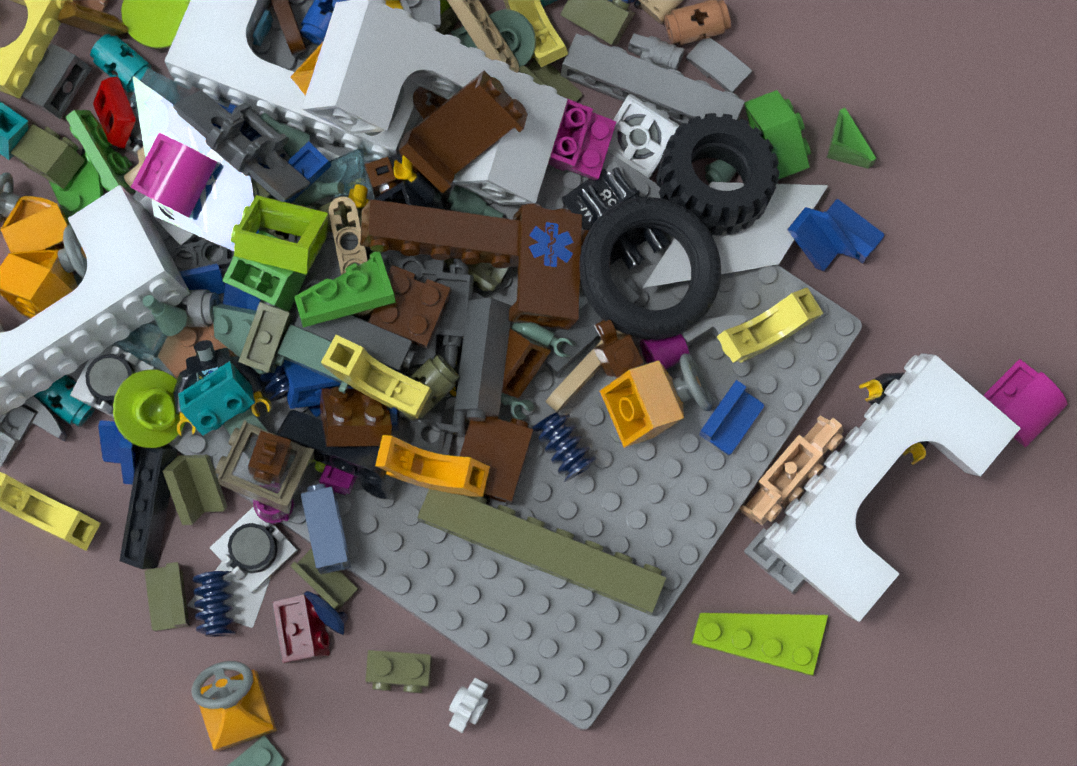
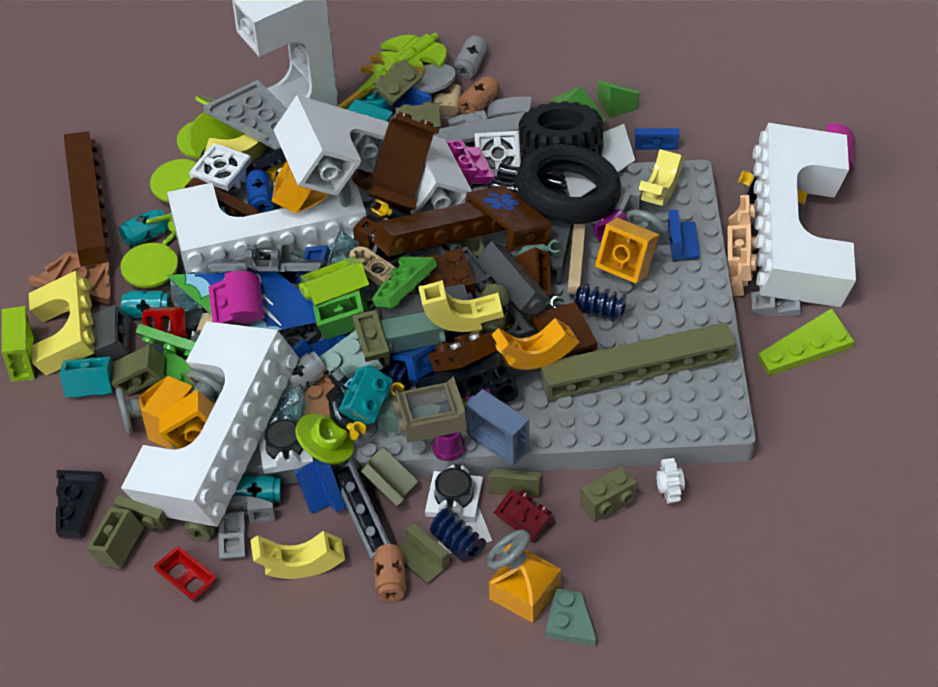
camera: 35 degrees left, 30 degrees down
(91, 19) = (109, 288): pearl gold slope -> none
(112, 608) = (389, 573): none -> nougat piece
(168, 317) = (297, 373): sand green cone -> none
(269, 458) = (430, 388): reddish brown brick -> none
(327, 613) = (534, 490): dark blue bar -> none
(616, 352) = (588, 231): reddish brown brick -> none
(820, 237) = (646, 137): blue panel -> none

